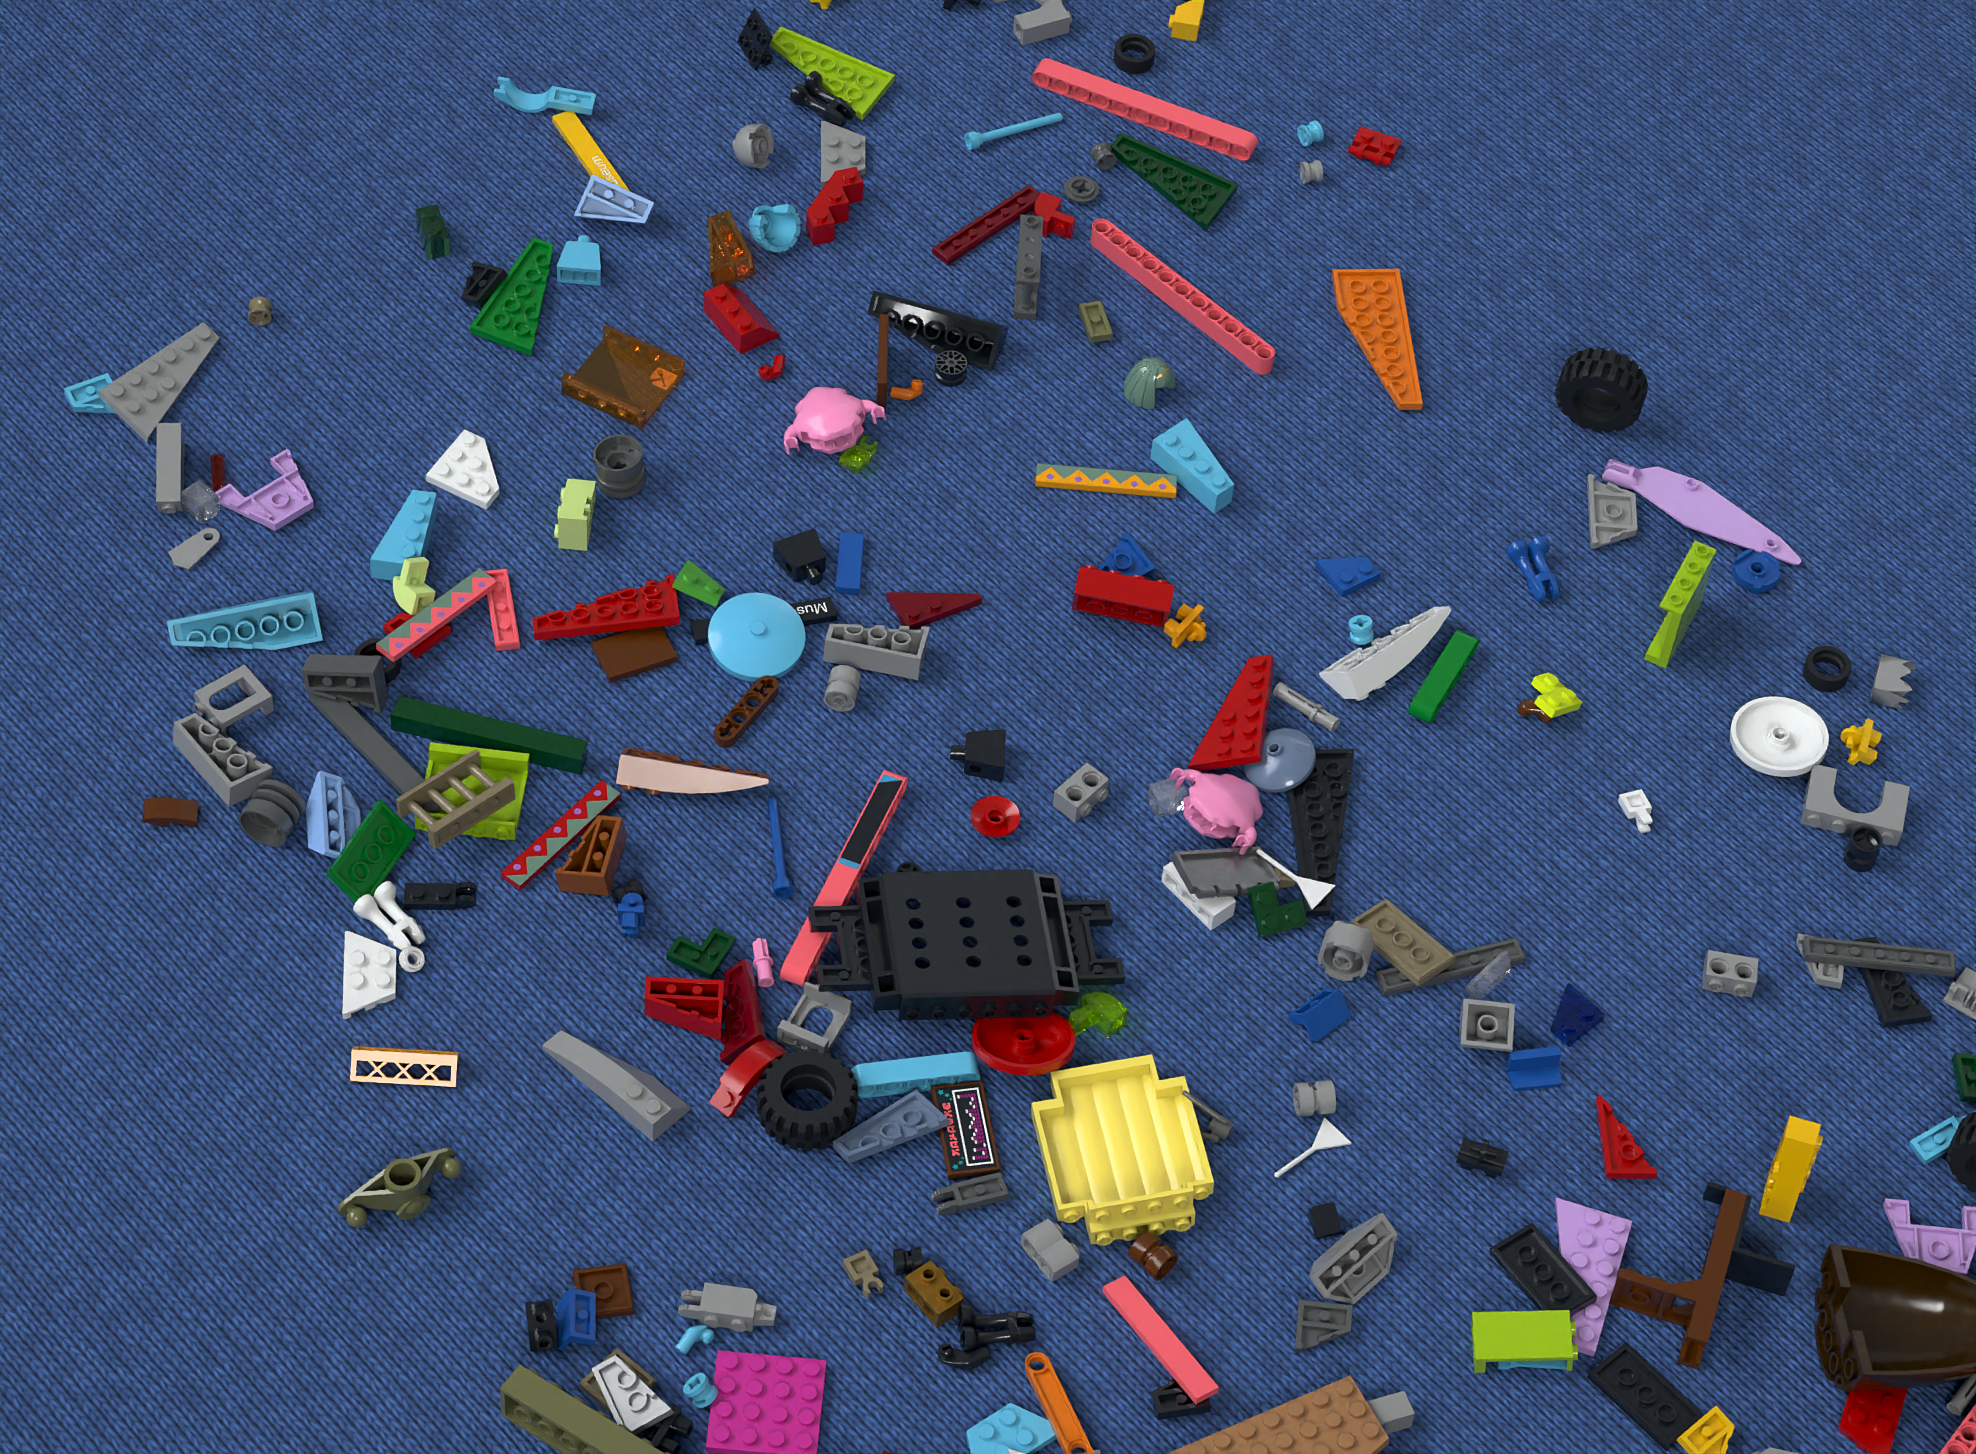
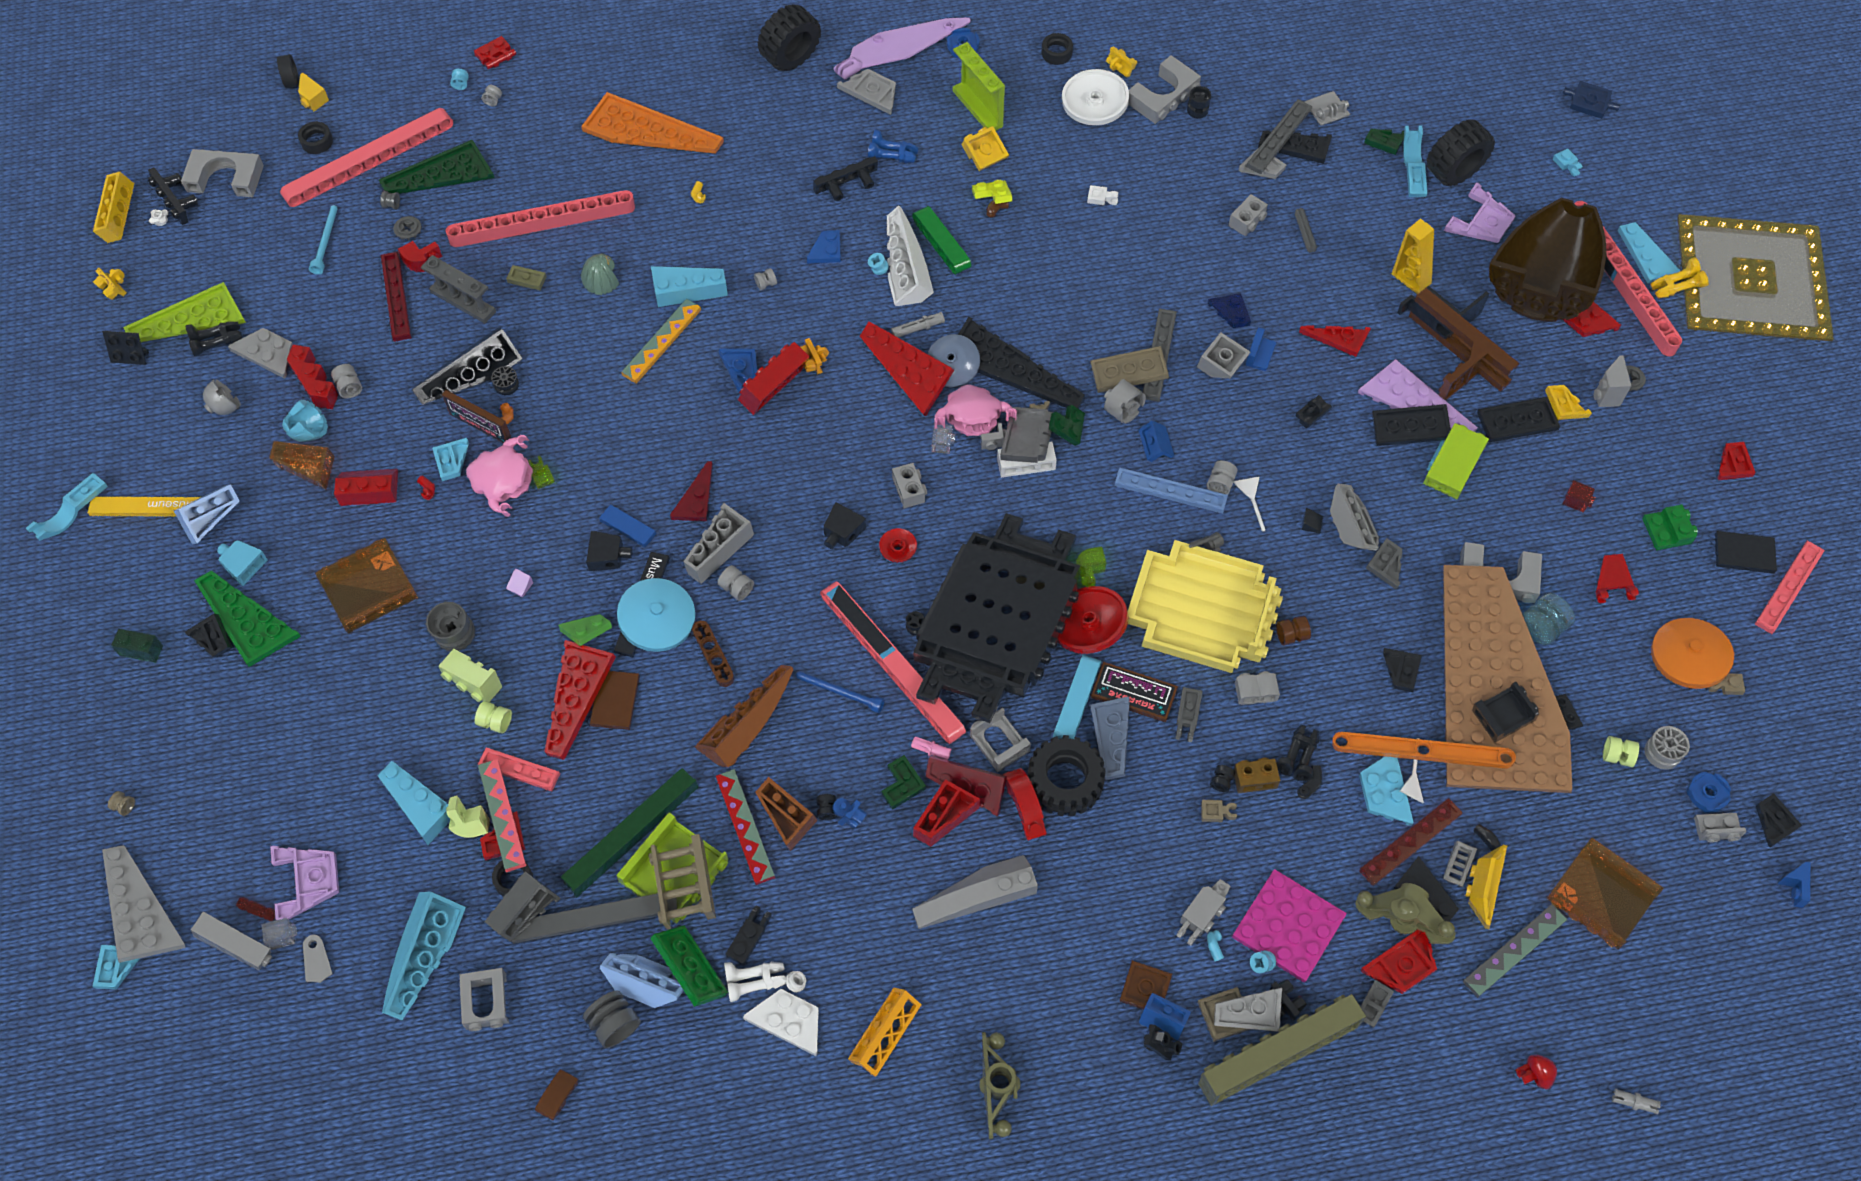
camera: 55 degrees left, 10 degrees up
(219, 759) = (535, 1035): light grey wedge -> none
(466, 471) = (376, 731): white plate -> none
(542, 555) = (494, 717): none -> yellowish green wheel
(714, 503) = (519, 583): none -> lavender slope
(821, 370) = (451, 458): none -> medium azure wing
(849, 236) = (346, 381): none -> light grey wheel
(1160, 1339) = (1357, 659): coral tile -> none
(1197, 841) = (993, 440): none -> light grey bracket
(1257, 534) = (765, 279): none -> light grey wheel
(1264, 1058) = (1171, 490): none -> medium blue tile
(1312, 890) = (1064, 395): white piece -> none
(1328, 417) = (696, 193): none -> yellow arm
(1455, 538) = (838, 177): none -> black plate
(1489, 976) = (1180, 337): clear slope -> none
(1611, 659) = (984, 148): none -> yellow plate
(1759, 1047) = (1305, 230): none -> dark grey axle
(1887, 685) = (1085, 25): light grey piece -> none

